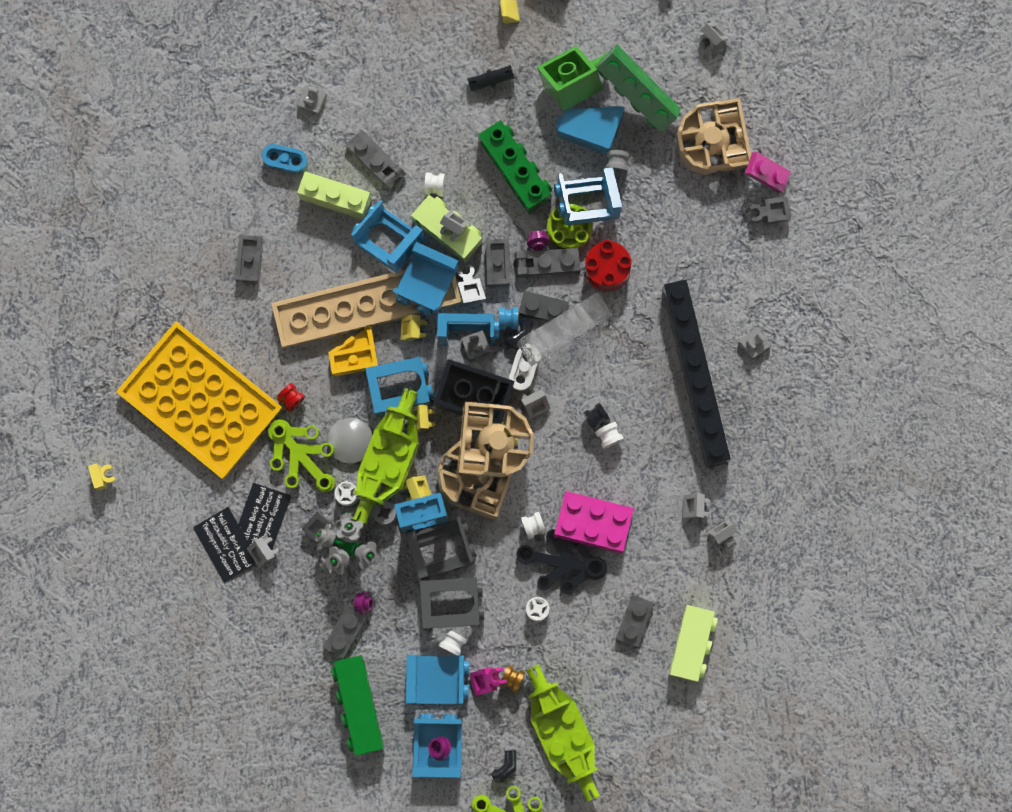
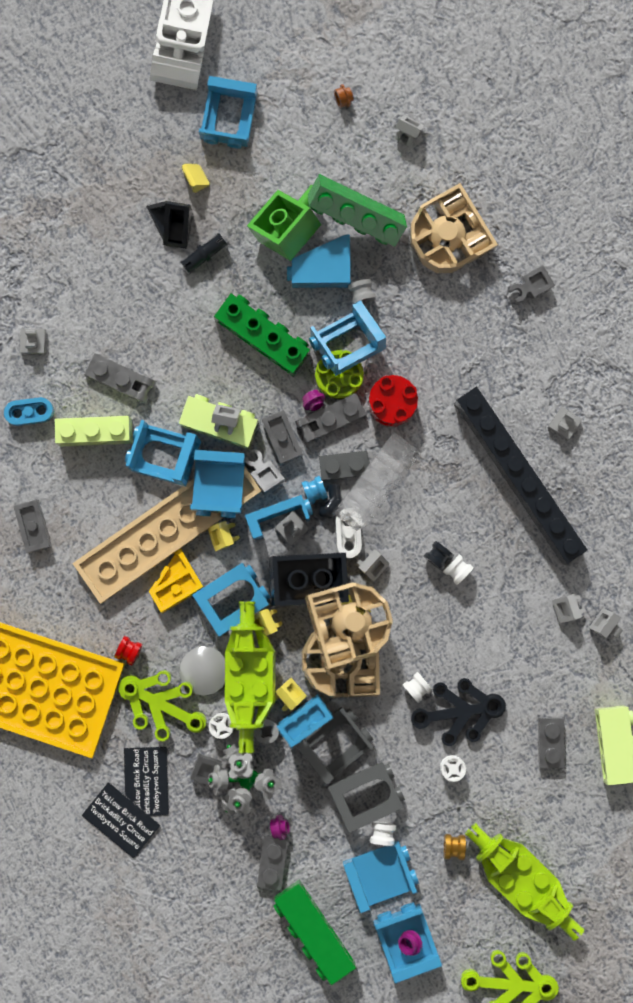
camera: 25 degrees left, 5 degrees up
(261, 552) = (158, 816): light grey tile -> none
(434, 184) = (189, 382): white wheel -> none
(474, 41) = (172, 222): none -> black slope
(486, 680) = (430, 859): dark pink plate -> none
(507, 770) = (483, 937): black arm -> none
(593, 522) = (475, 661): dark pink plate -> none
(767, 172) = (515, 247): dark pink plate -> none

